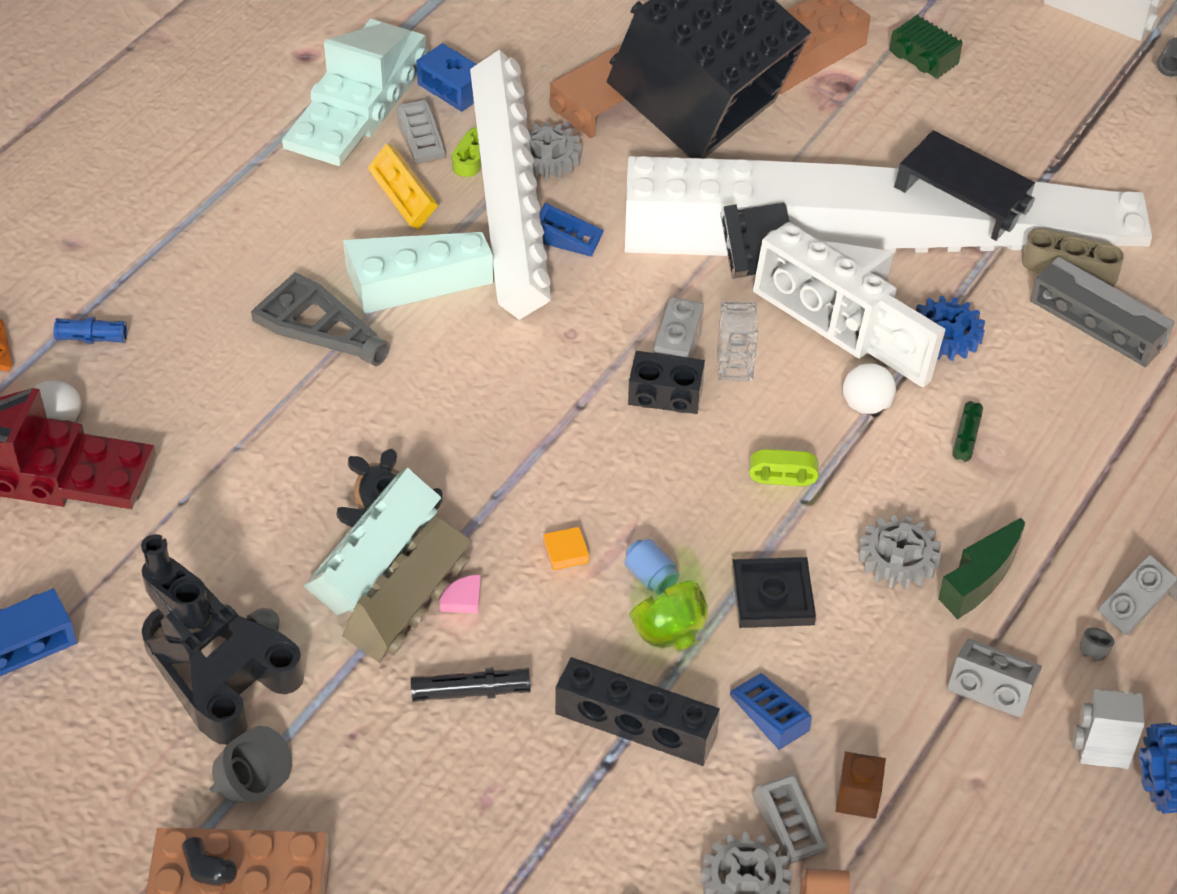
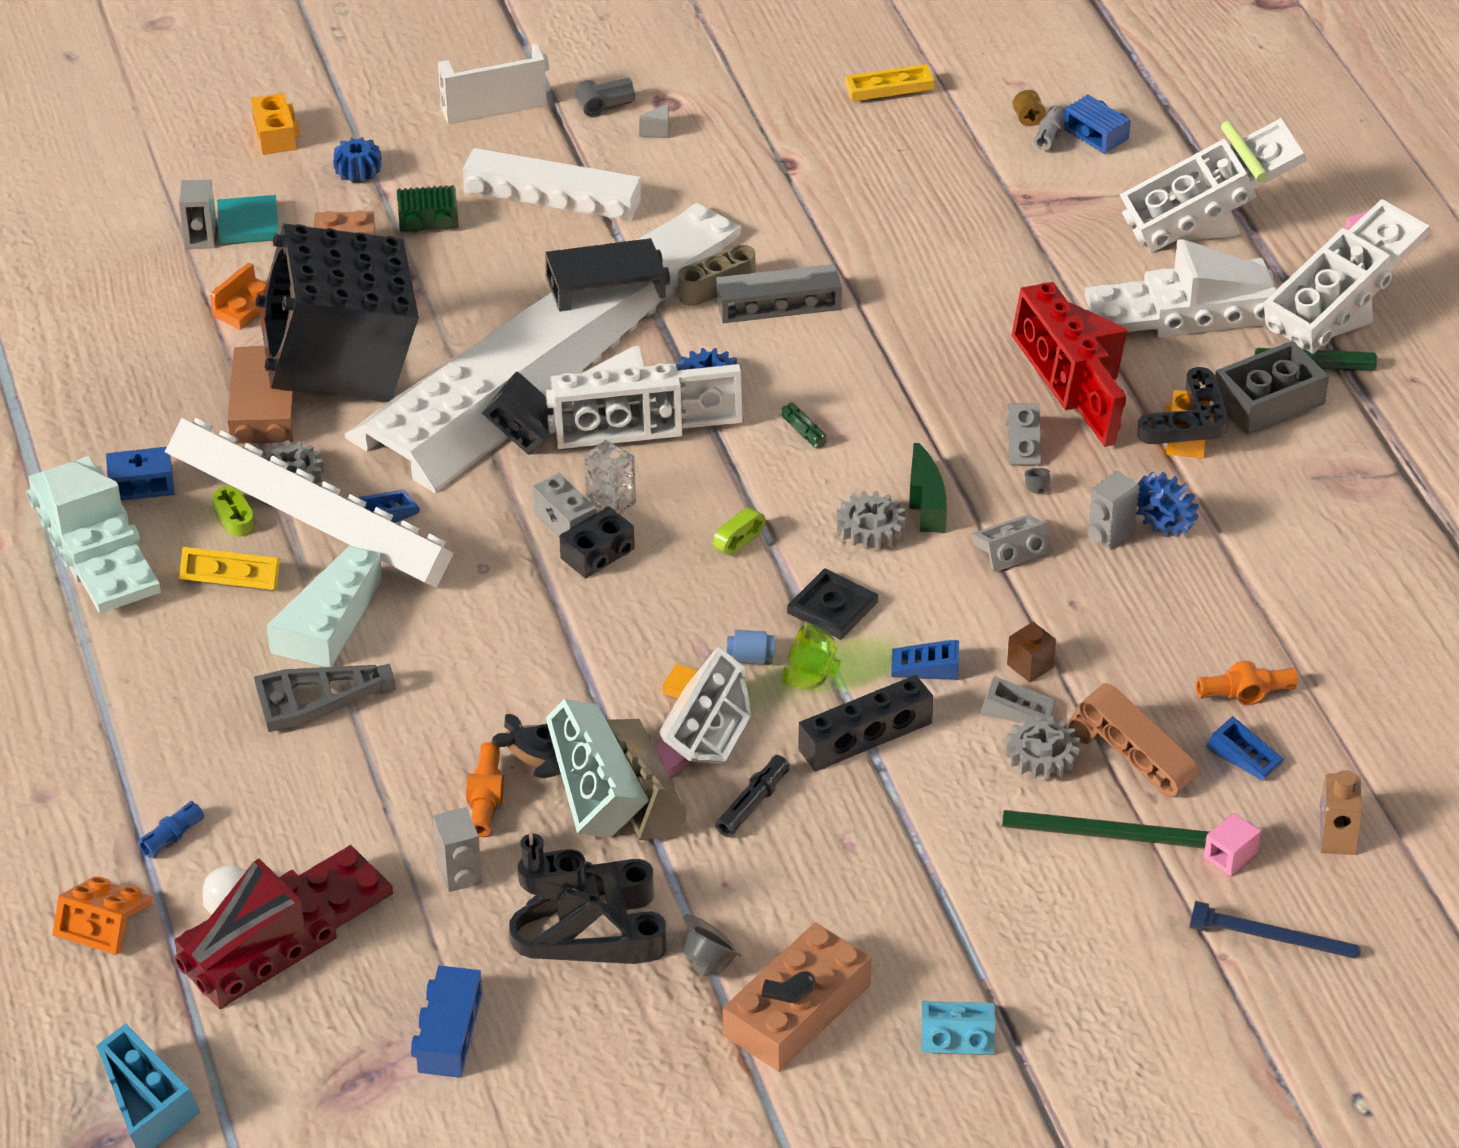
camera: 50 degrees left, 5 degrees down
(200, 515) = (457, 849): none -> light grey brick
(303, 493) = (485, 788): none -> orange pin
(420, 130) = (161, 516): light grey slope -> none
(528, 588) = (709, 711): none -> white wedge
(869, 388) = (715, 447): white hair -> none
(1047, 97) = (552, 184): none -> white brick

